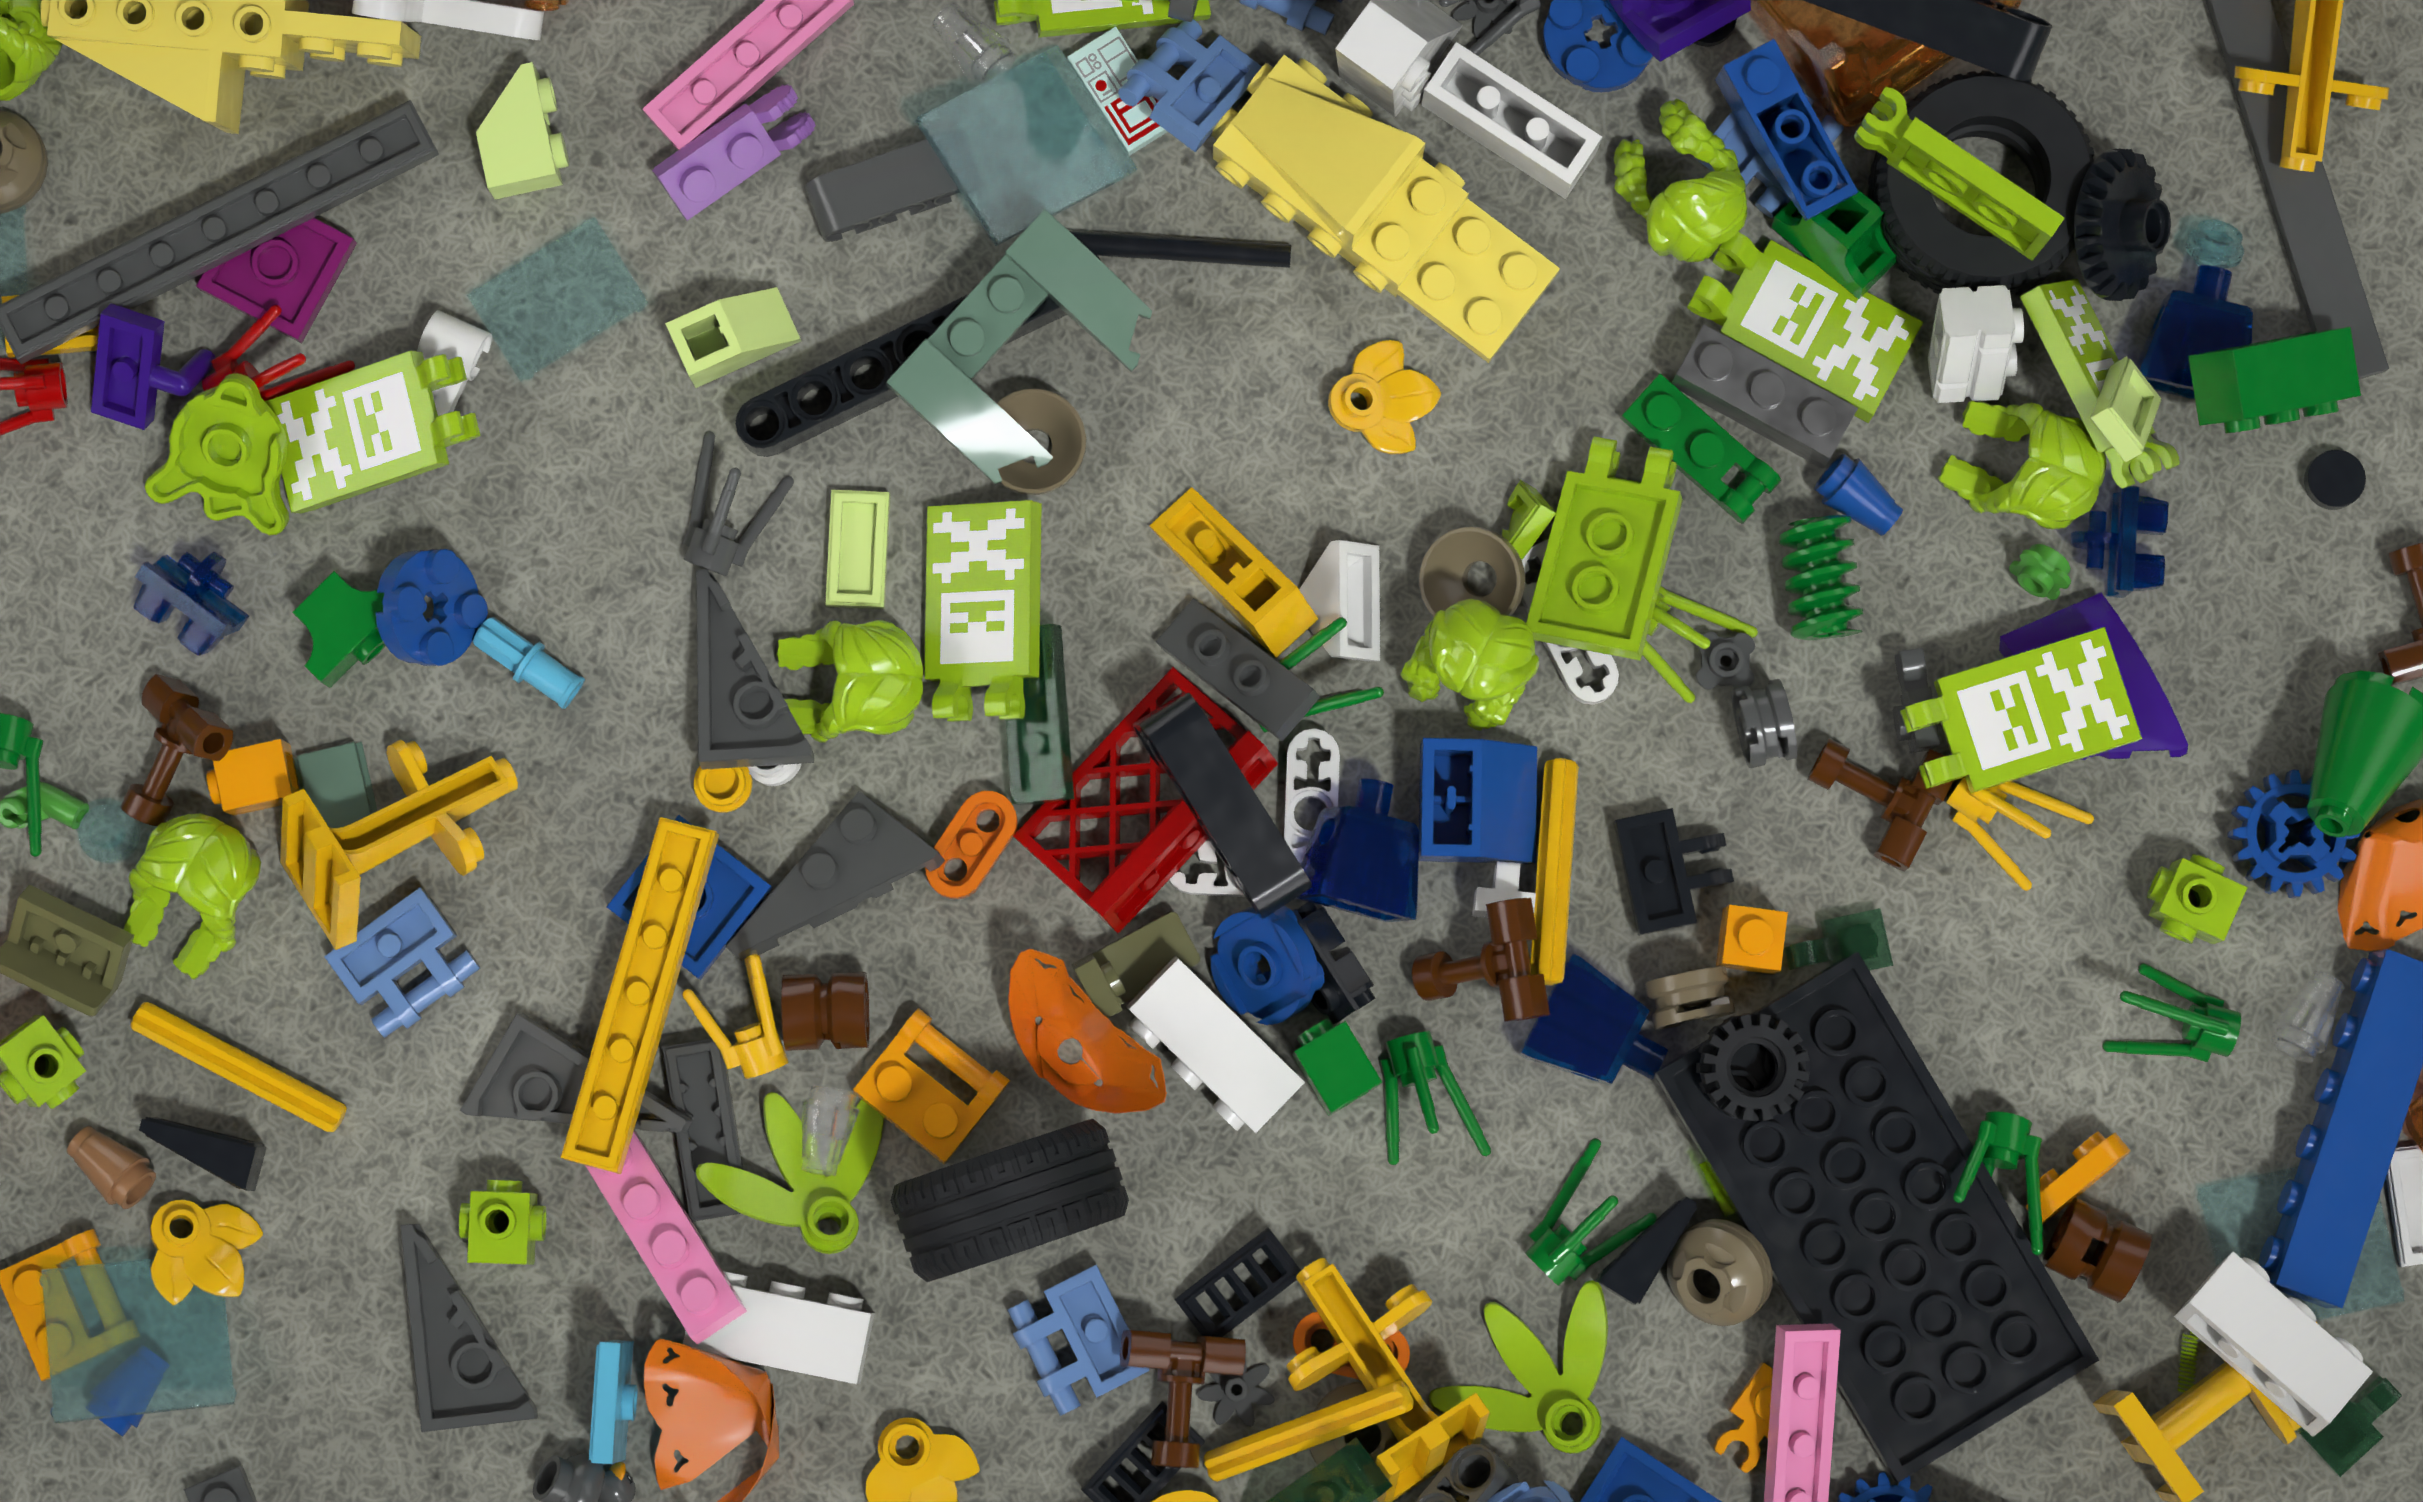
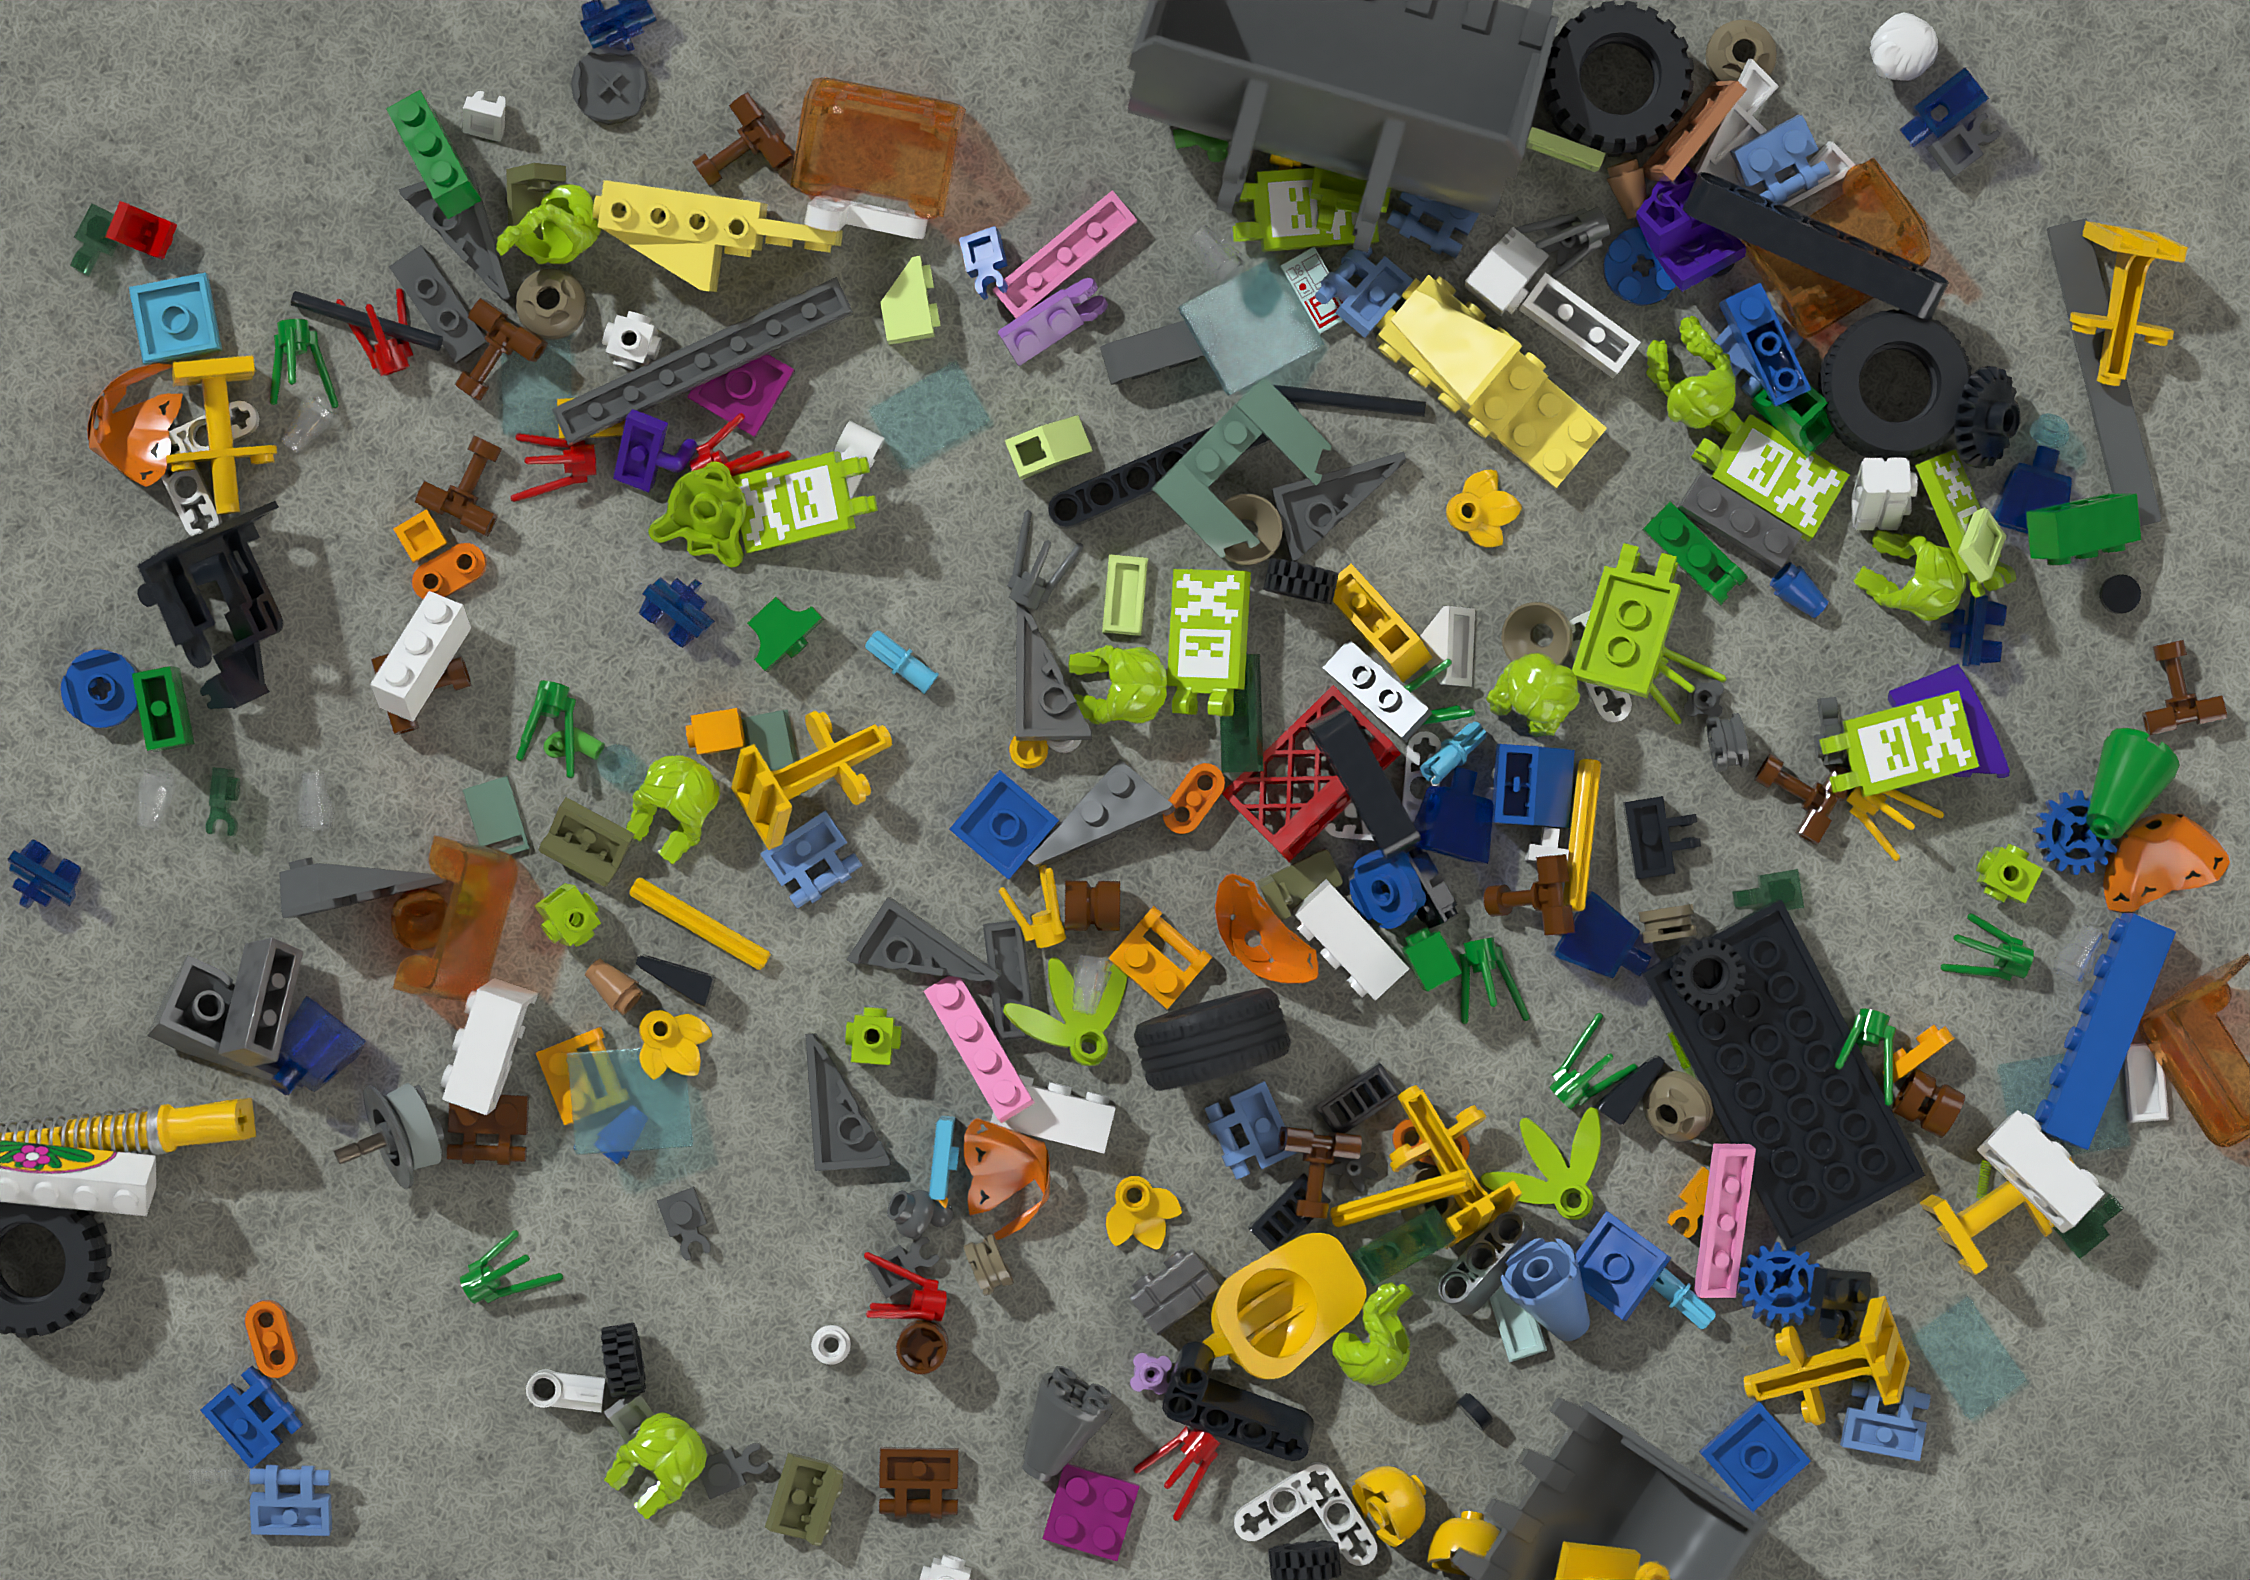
camera: 10 degrees right, 5 degrees up
(127, 217) = (642, 351): none -> white brick
(182, 731) = (670, 699): reddish brown bar -> none
(455, 600) = (854, 627): blue plate -> none
(627, 63) = (982, 257): none -> plate
(640, 995) = (970, 890): yellow tile -> none
(1116, 513) = (1300, 581): none -> black tyre
(1135, 409) = (1313, 510): none -> dark grey wing
(1355, 757) = (1453, 752): none -> medium azure axle
(1528, 519) = (1576, 596): lime tile -> none
(1751, 939) = (1710, 886): light orange brick -> none
(1819, 578) = (1770, 645): green piece -> none
(1957, 176) = (1878, 386): lime tile -> none
(2042, 571) = (1919, 648): bright green plate -> none

